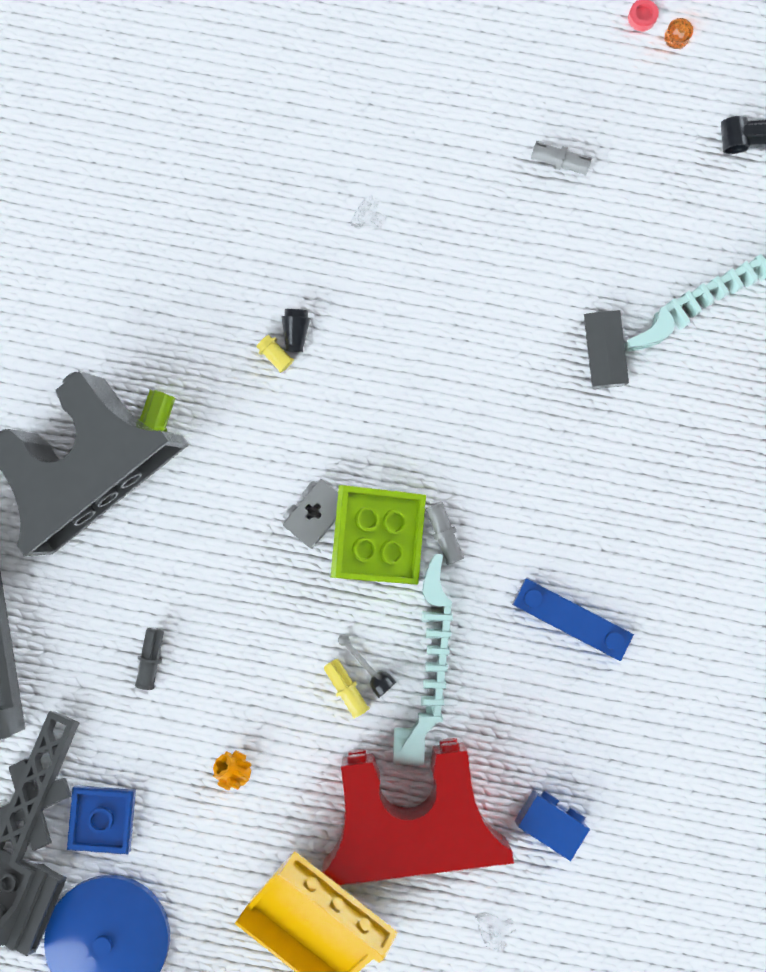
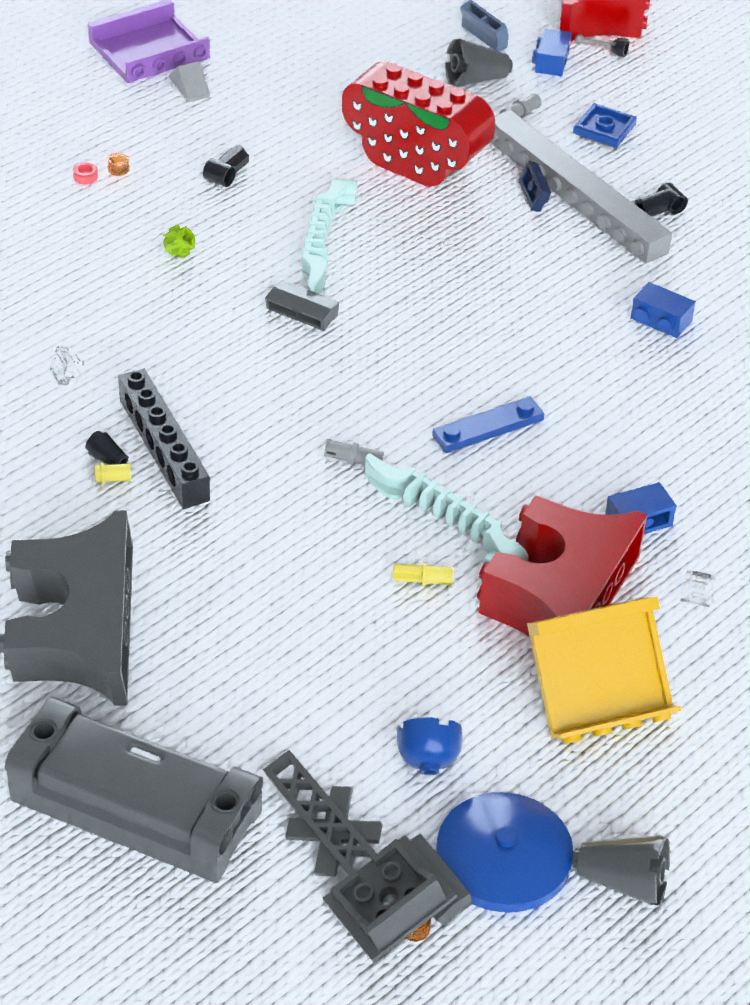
camera: 55 degrees left, 40 degrees down
(101, 819) = (392, 790): blue plate -> none
(149, 659) = (282, 681): dark grey axle -> none
(157, 824) = (428, 744): none -> blue cylinder
(232, 770) = (427, 673): light orange gear -> none
(297, 516) = (264, 513): light grey brick -> none
(340, 364) = (164, 438): none -> black brick
(378, 535) = (318, 479): lime plate -> none
(380, 681) = (436, 550): hinge -> none
(561, 158) = (139, 255): light grey pin -> none
(603, 179) = (179, 241): none -> lime gear

